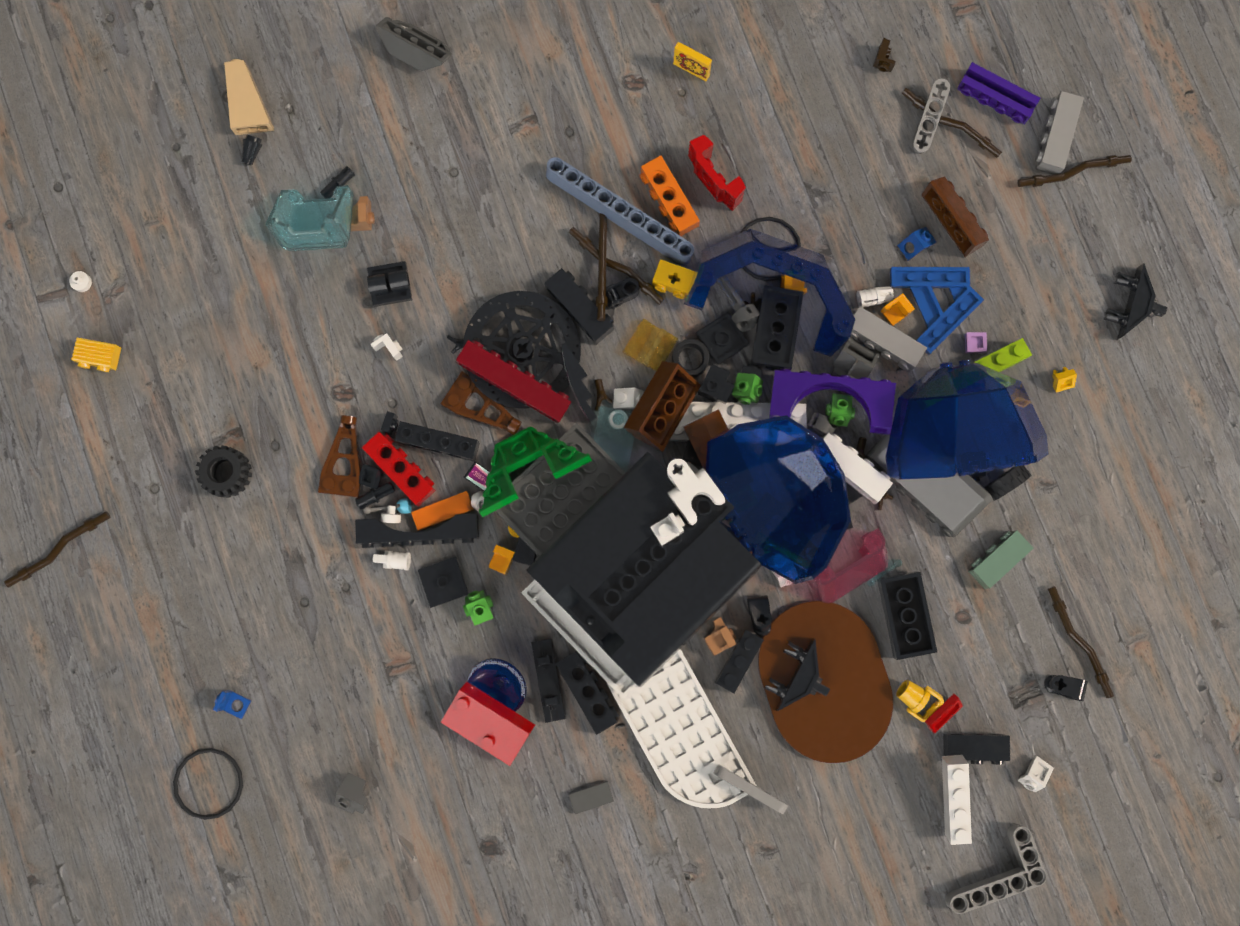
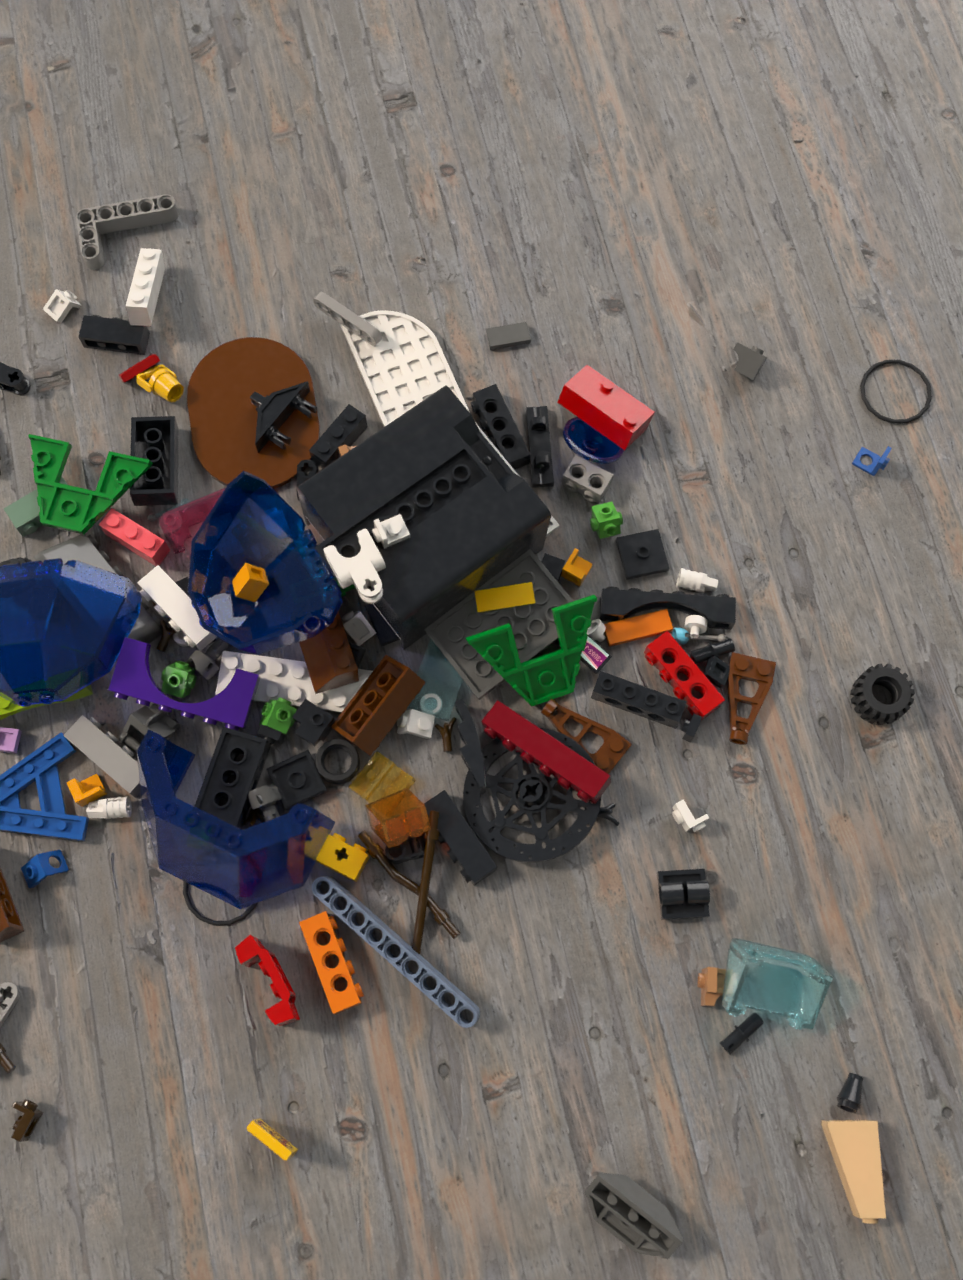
camera: 175 degrees left, 10 degrees down
(499, 651) = (590, 475): none -> light grey brick
(561, 514) = (504, 597): none -> yellow sticker
(631, 310) = (398, 817): none -> clear orange piece
(793, 499) = (250, 582): none -> light orange panel
(909, 538) = (134, 537): none -> coral brick
(975, 554) = (75, 507): none -> green wing

